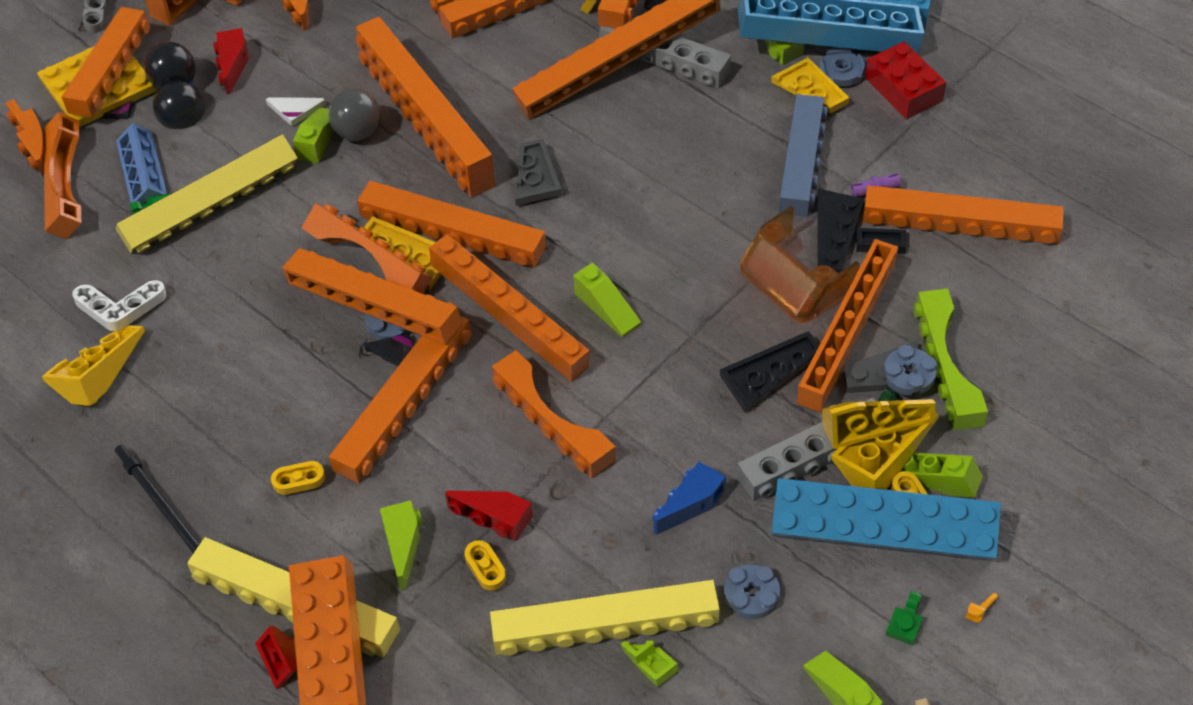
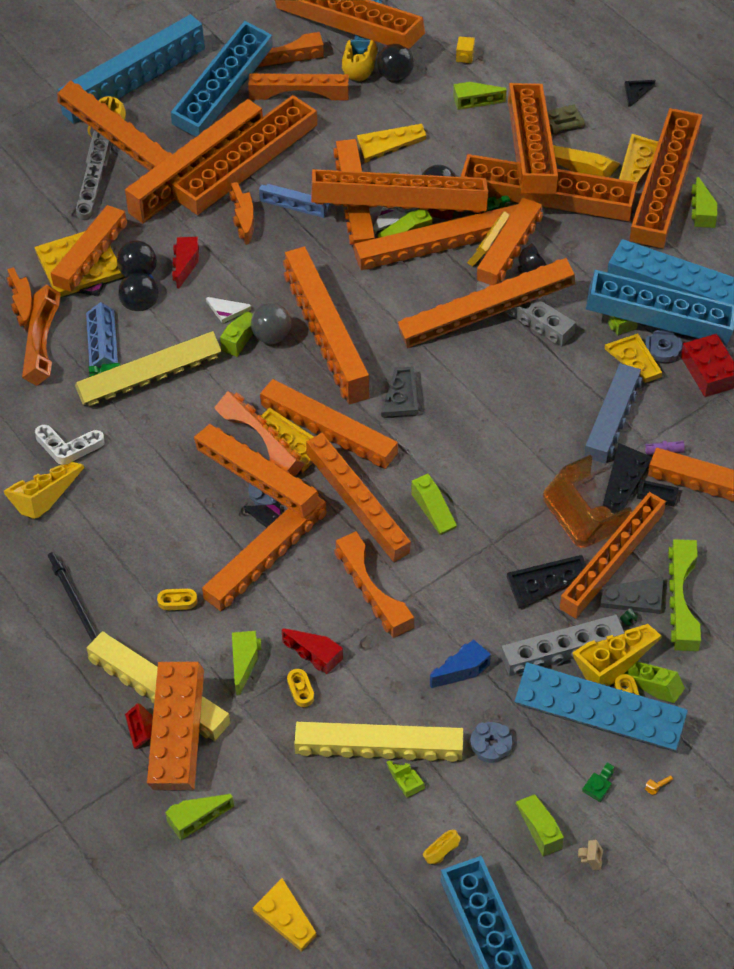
camera: 10 degrees right, 0 degrees up
(866, 420) = (604, 631): yellow wedge -> none
(912, 358) = (653, 589): sand blue plate -> none

